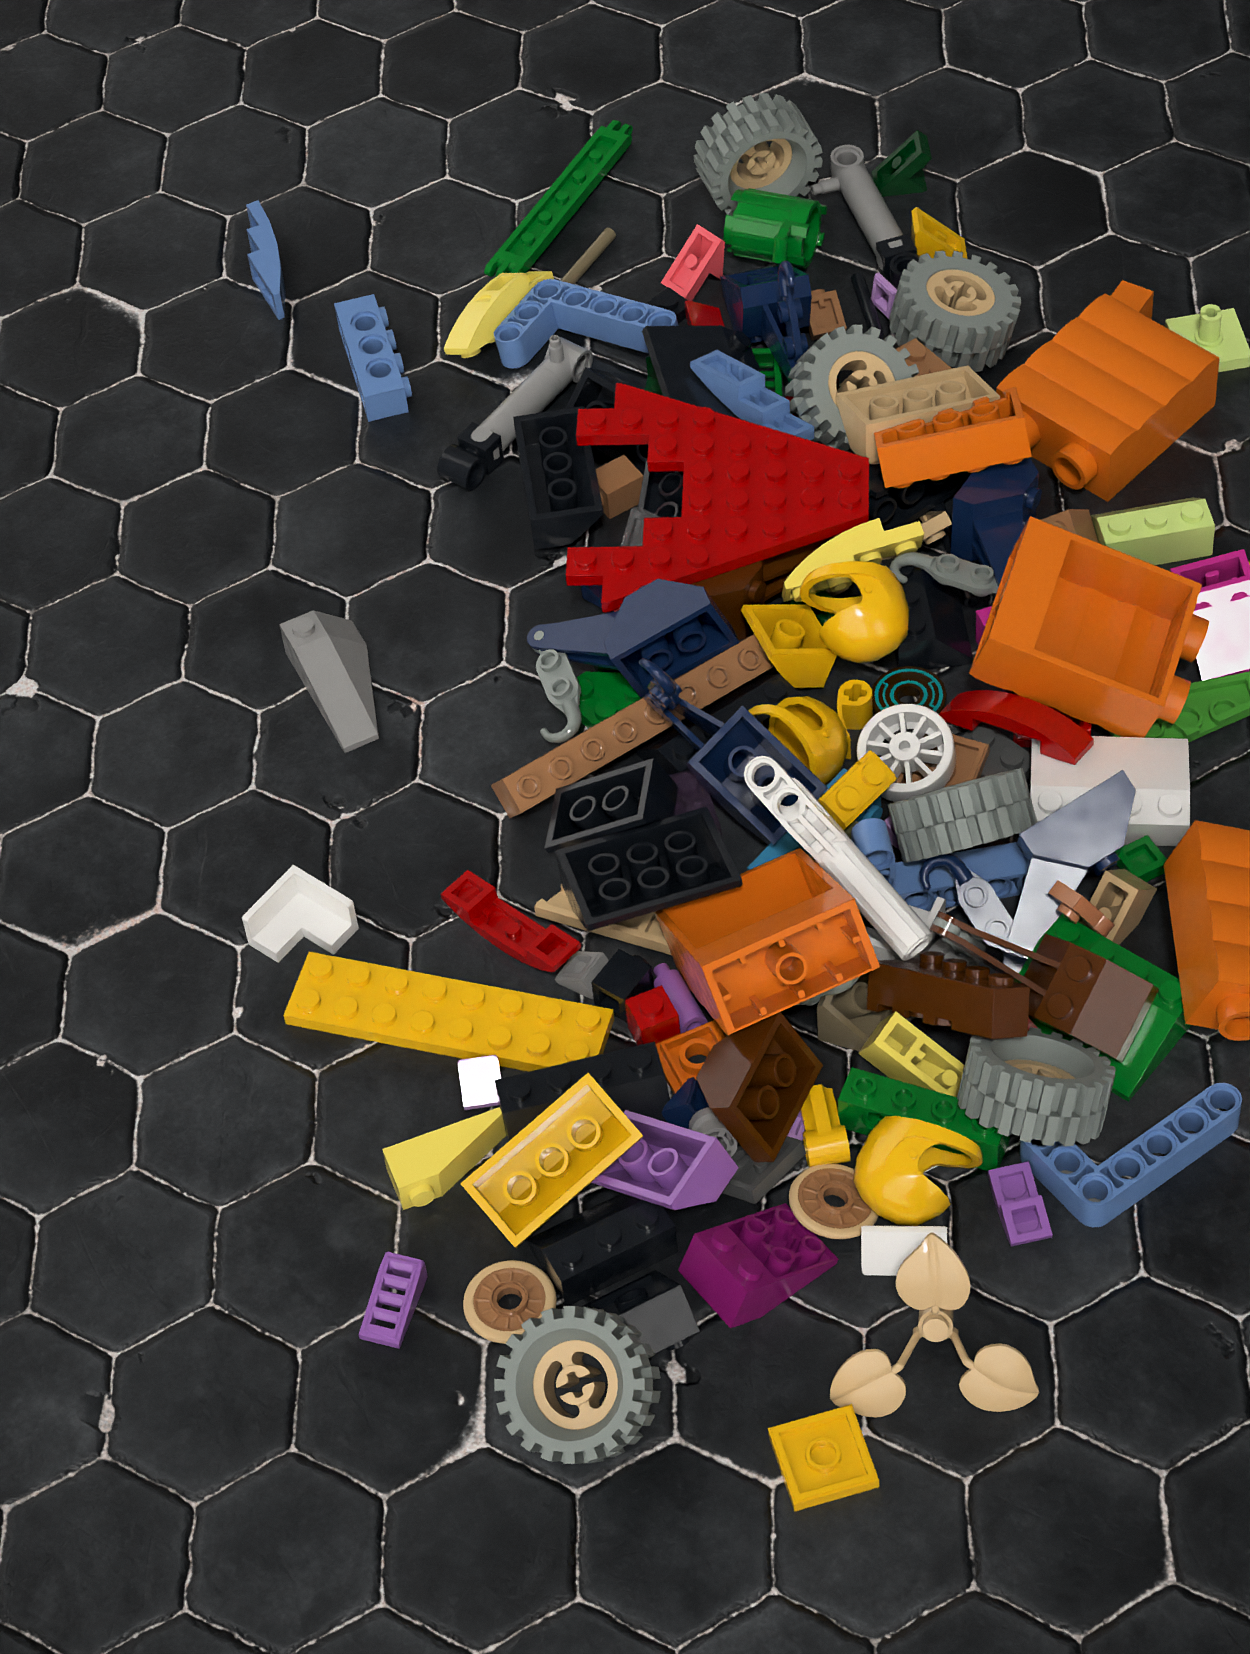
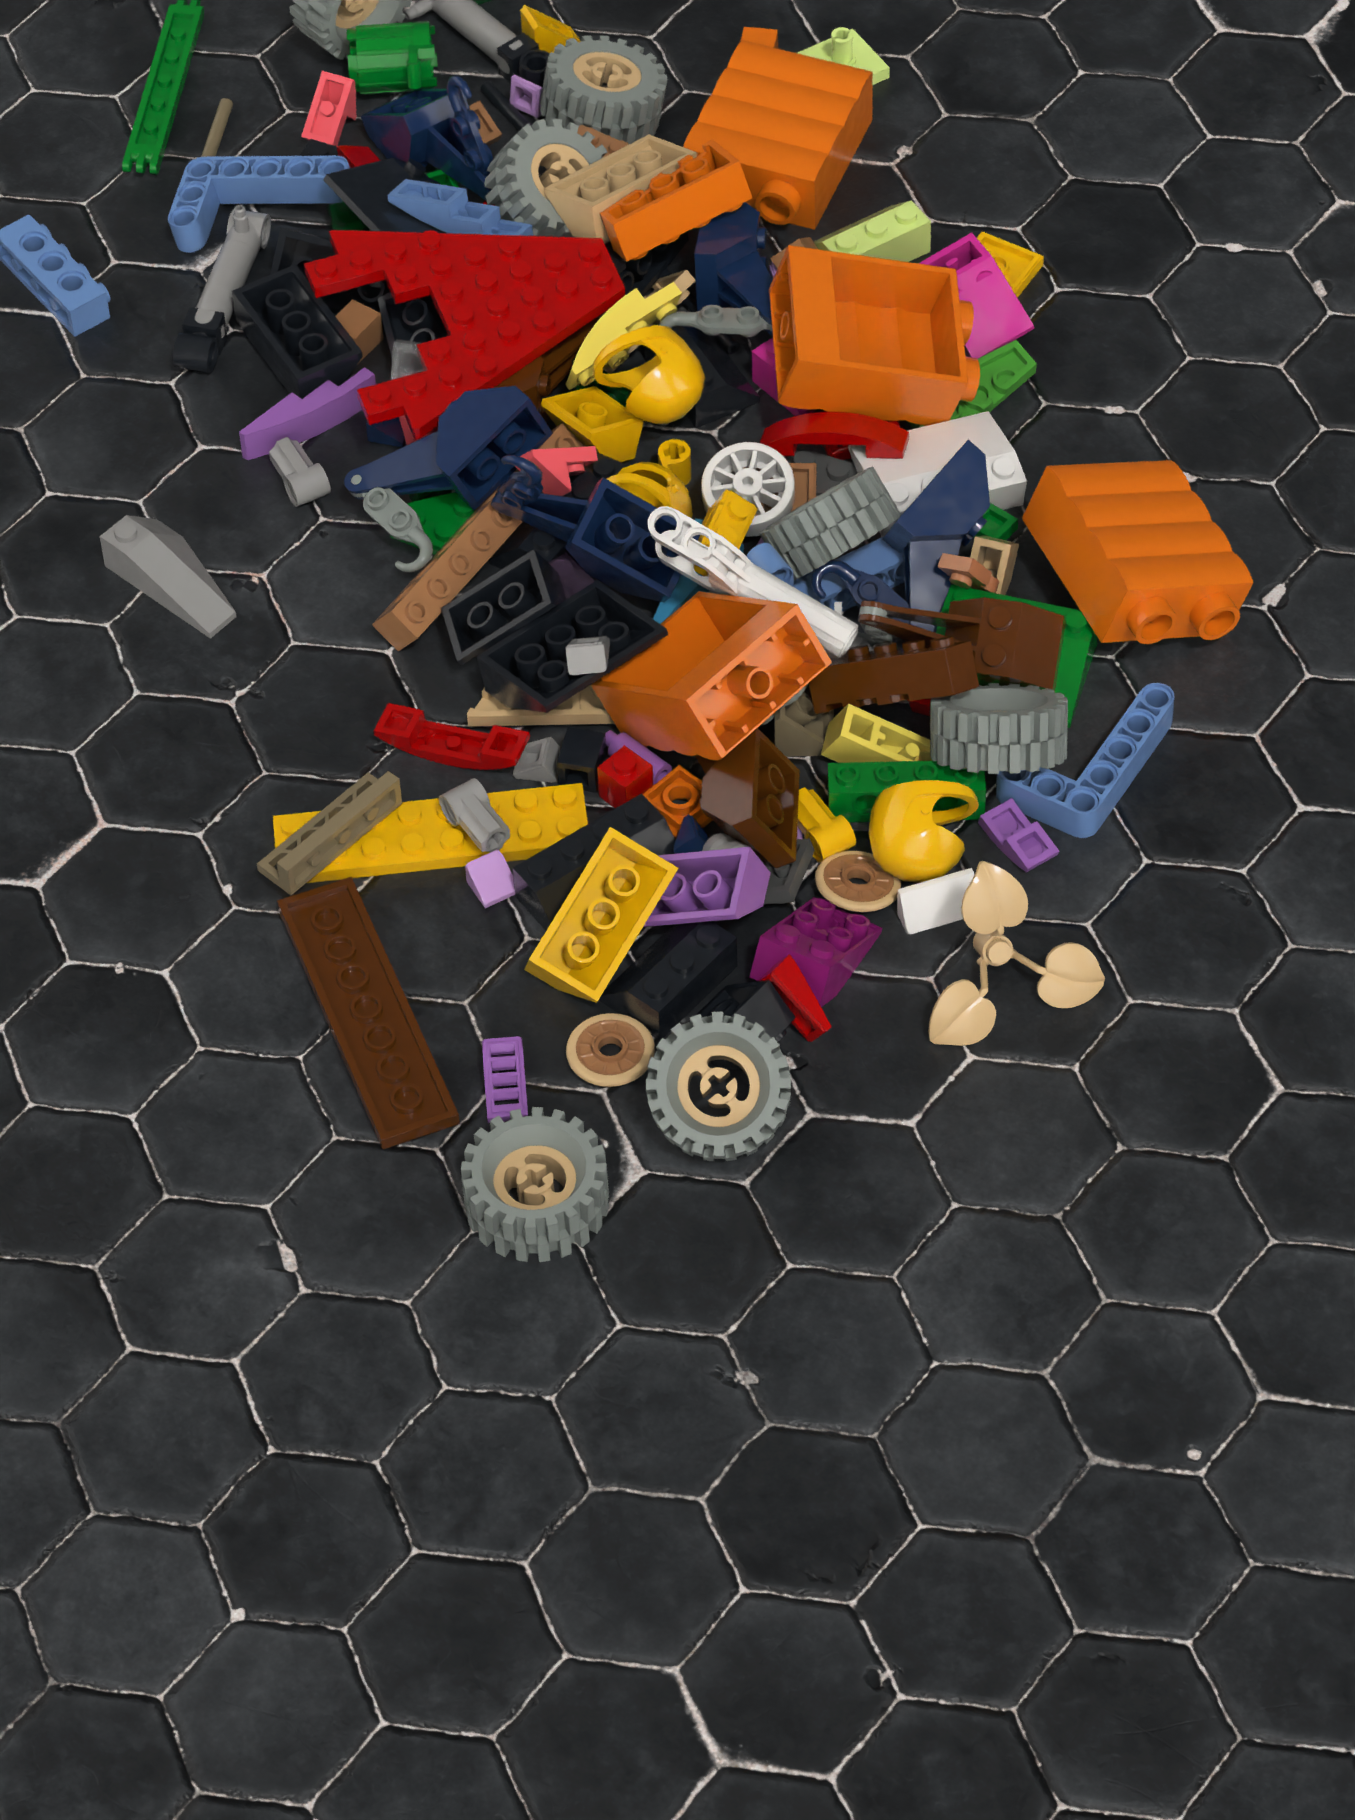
camera: 25 degrees left, 0 degrees up
(297, 1187) = (368, 1013): none -> reddish brown plate
(298, 909) = (247, 780): white panel -> none
(348, 987) = (332, 831): none -> dark tan fence
(353, 1392) = (529, 1156): none -> light grey wheel
(437, 1160) = (483, 957): light yellow slope -> none
(486, 1008) = (471, 809): none -> light grey piece
(488, 309) = (151, 202): light yellow slope -> none
(499, 616) = (300, 476): none -> light grey piece
(525, 560) = (304, 417): none -> medium lavender slope
(652, 883) = (588, 655): none -> light grey slope
(704, 1303) = (798, 996): none -> red slope
(717, 675) = (559, 464): none -> coral slope
(823, 1457) = (946, 1087): yellow tile -> none
(909, 682) = (712, 432): dark brown tile -> none

